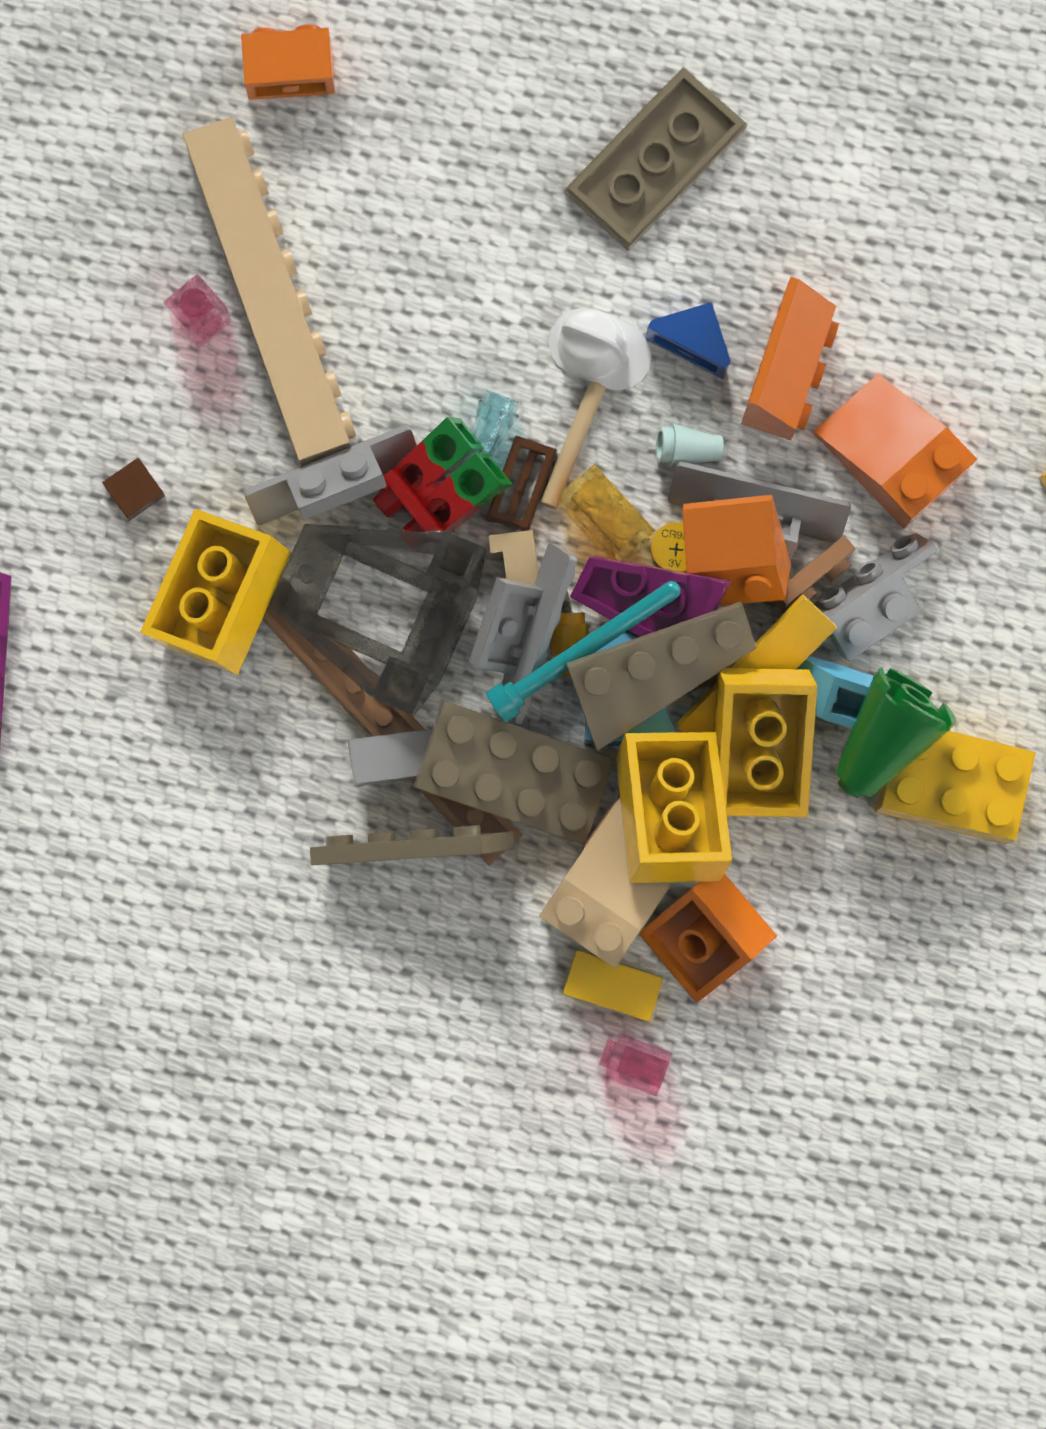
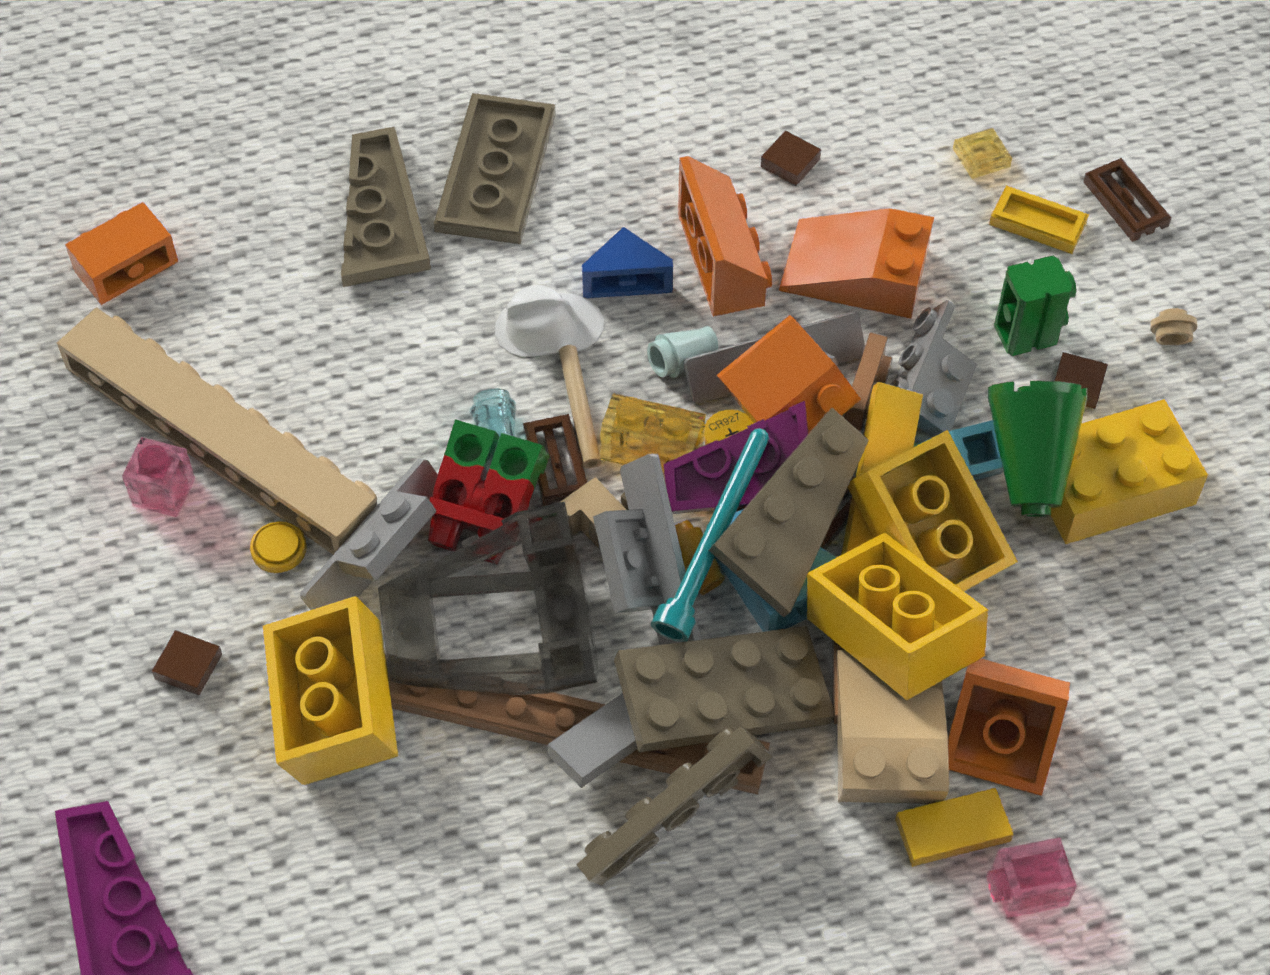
camera: 30 degrees left, 25 degrees down
(259, 427) = (278, 547): none -> yellow piece
(521, 164) = (382, 219): none -> dark tan wing
(914, 306) = (790, 158): none -> reddish brown tile
(995, 677) = (1084, 372): none -> reddish brown tile
(1000, 595) = (1034, 305): none -> green brick

